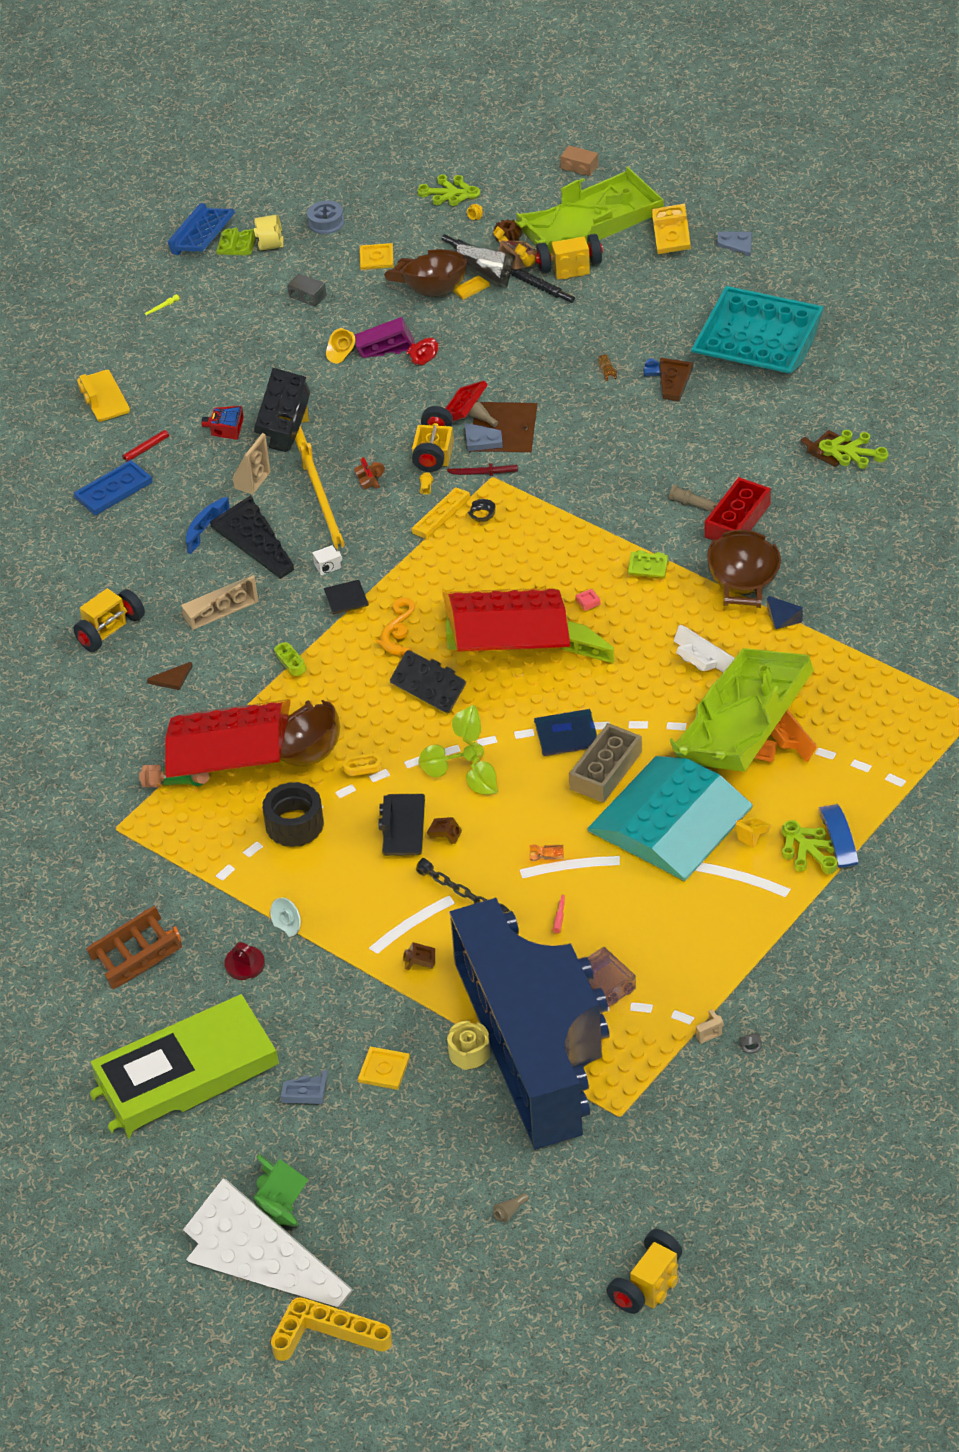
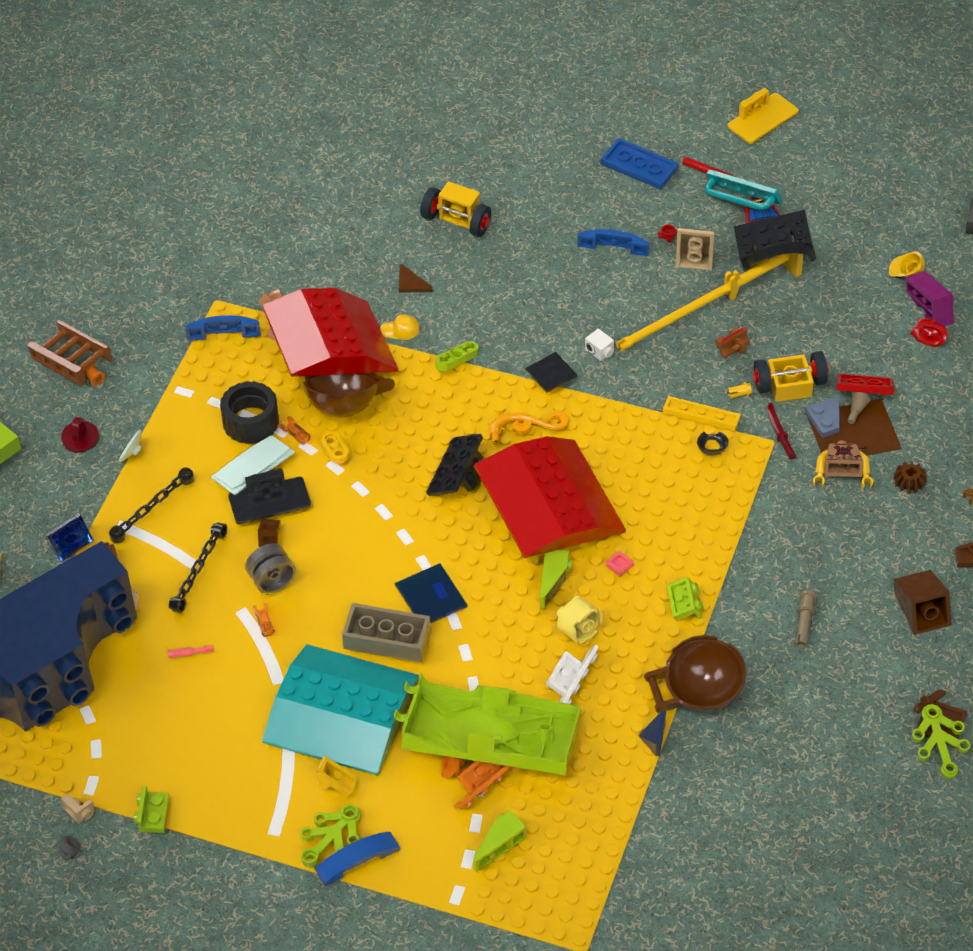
camera: 70 degrees right, 5 degrees up
(169, 301) = (918, 123): neon yellow piece -> none
(172, 803) = (222, 324): none -> blue slope
(193, 419) = (742, 186): none -> teal piece
(211, 487) = (668, 232): none -> red plate
(220, 602) = (513, 284): tan wedge -> none
(228, 694) = (402, 328): none -> yellow piece
(253, 535) = (616, 279): black wing -> none
(329, 788) = (295, 431): none -> clear orange bar
(353, 829) = (255, 460): none -> light aqua piece
(380, 981) = (69, 537): none -> clear blue slope
(391, 945) = (117, 533): none -> black piece
(466, 725) = (369, 523): lime plant -> none
(498, 828) = (270, 568): none -> flat silver wheel
(542, 435) = (845, 461): none -> torso
(575, 402) = (910, 477): none -> reddish brown gear
(611, 976) = (111, 704): panel -> none
(647, 630) = (579, 619): none -> light yellow brick
(709, 424) = (923, 601): none -> reddish brown slope
(736, 969) = (152, 811): none -> lime bracket
(738, 508) = (793, 657): red brick -> none
(856, 734) = (502, 836): none -> lime slope

